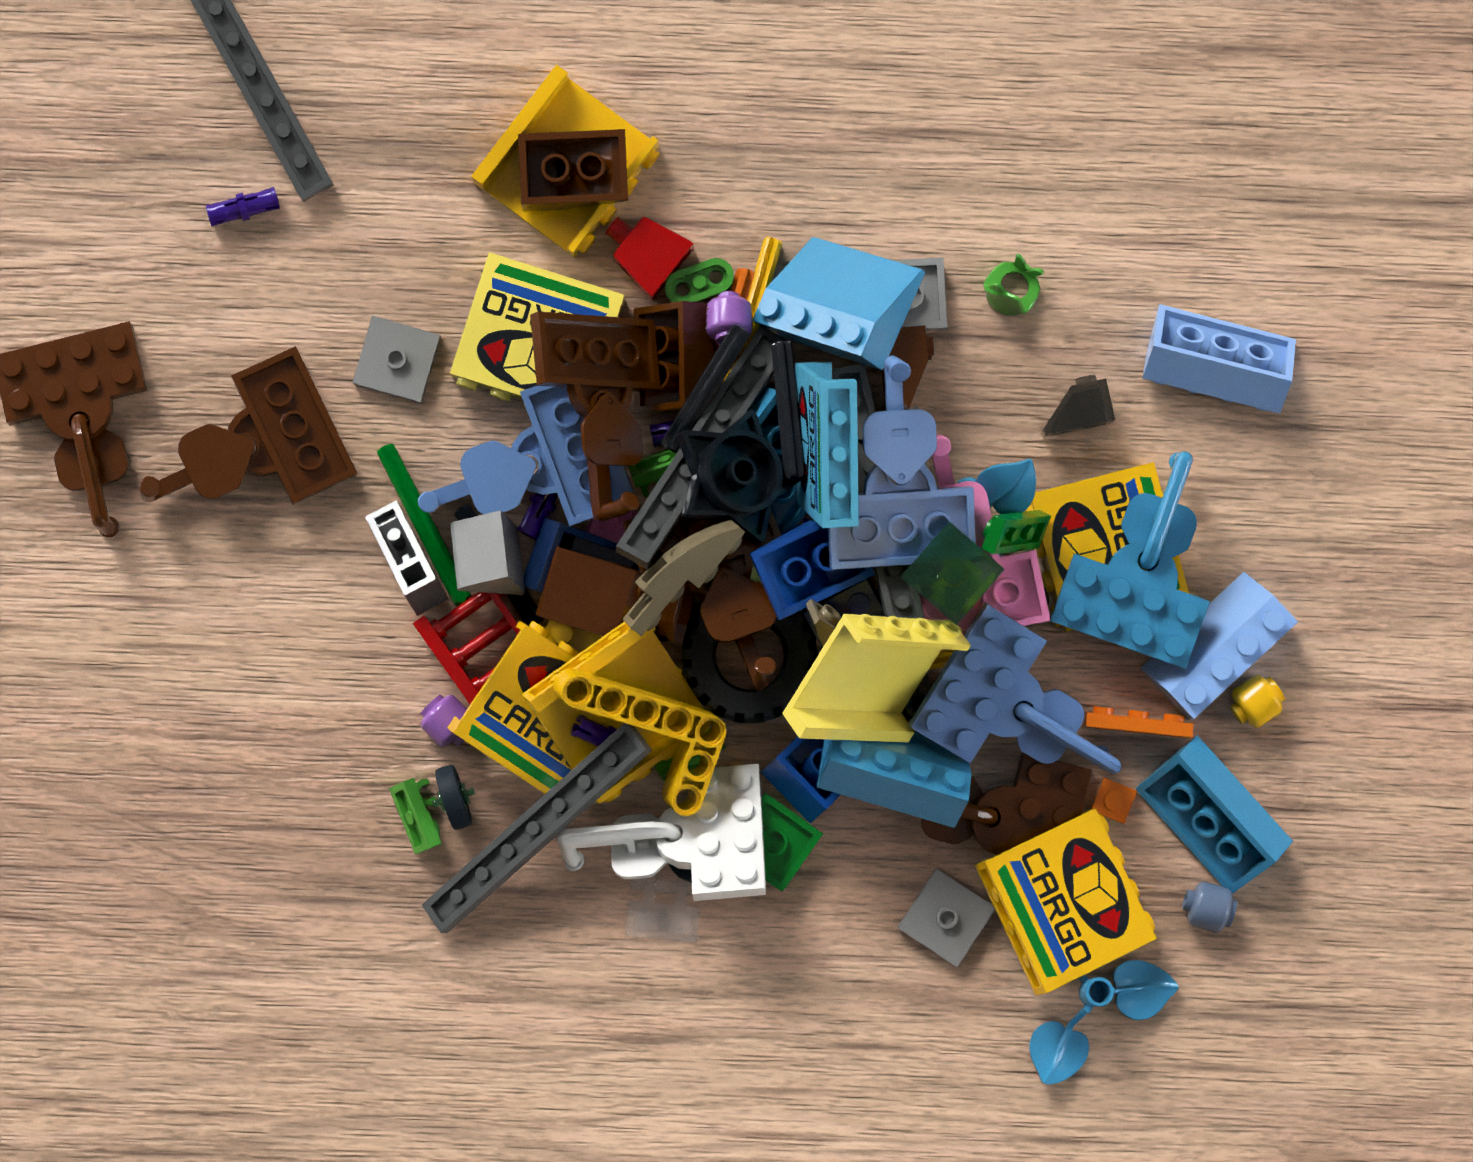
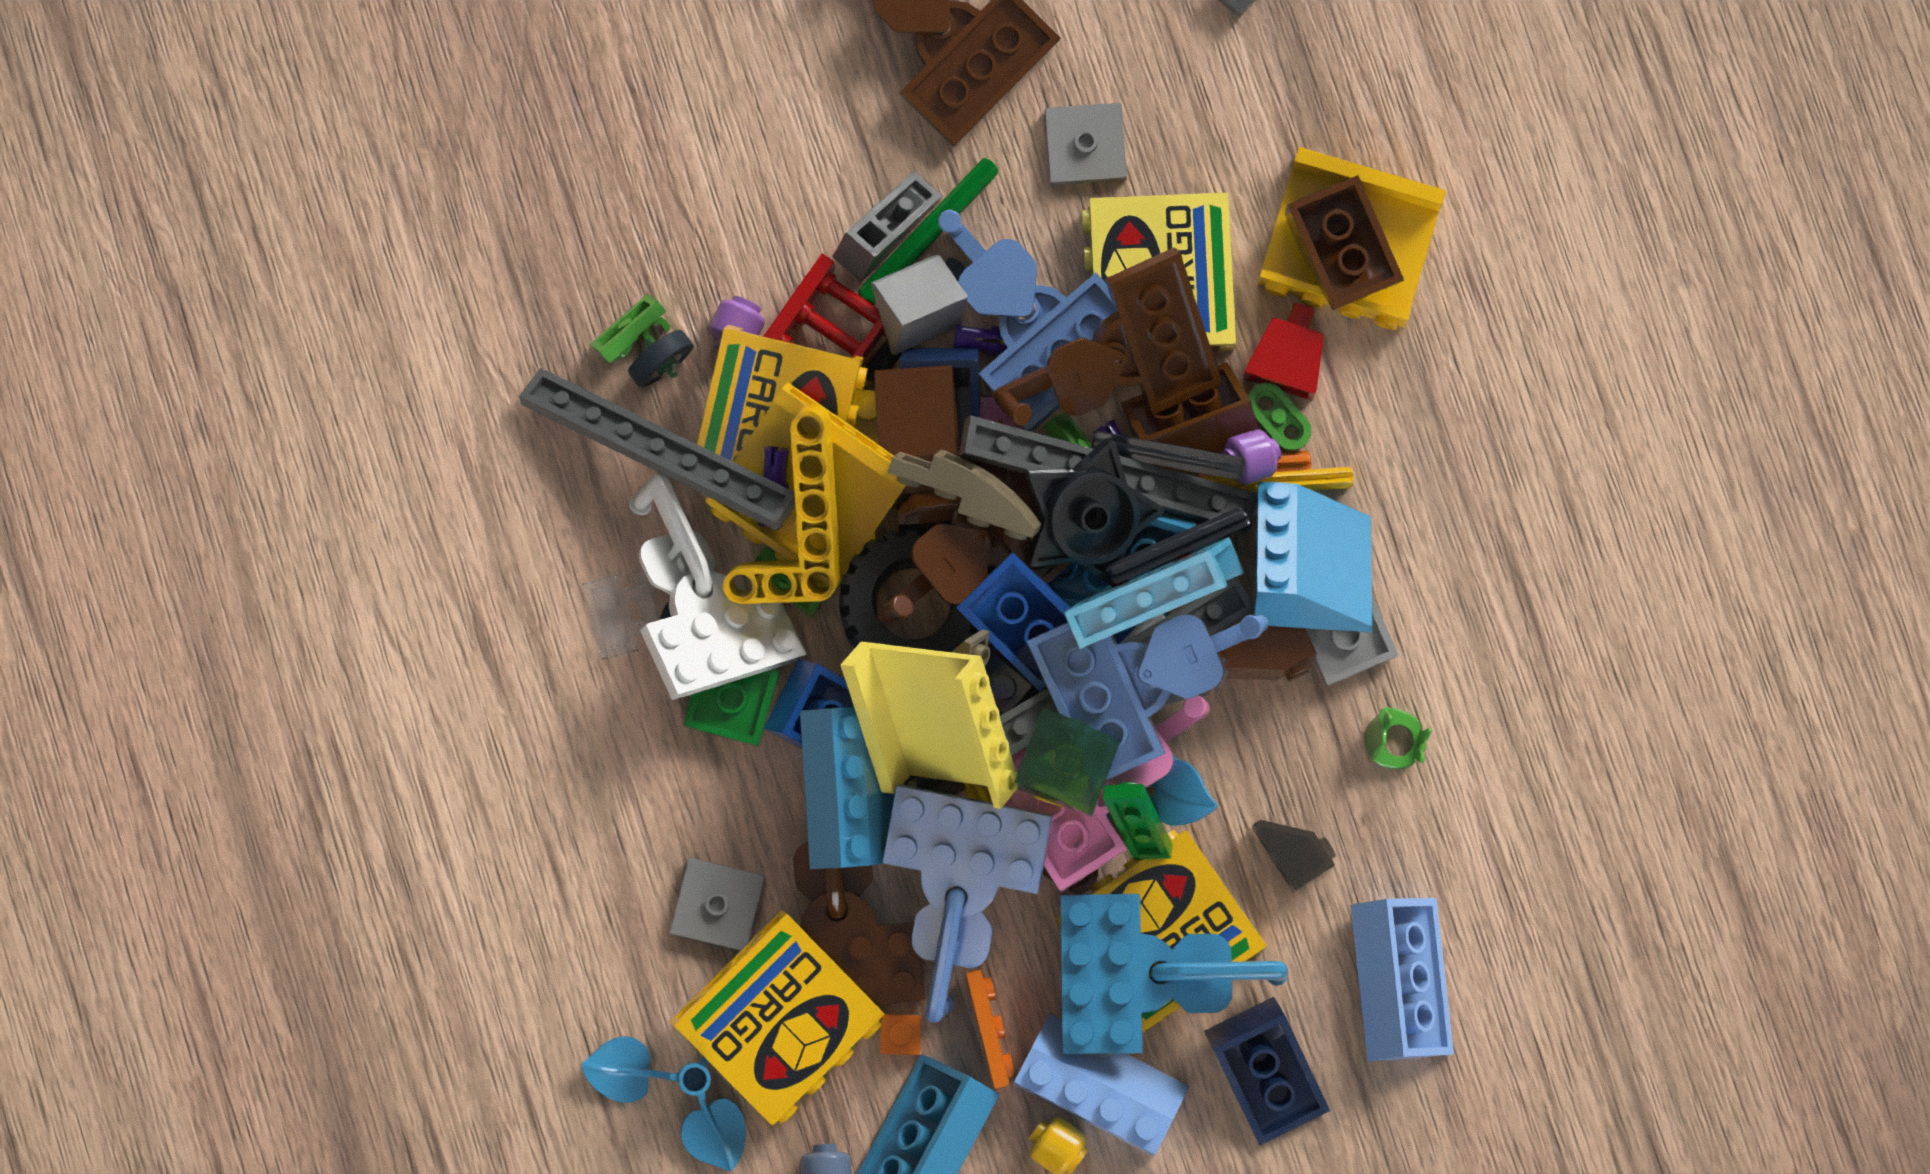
camera: 75 degrees right, 5 degrees down
(1255, 501) = (1267, 1070): none -> dark blue slope

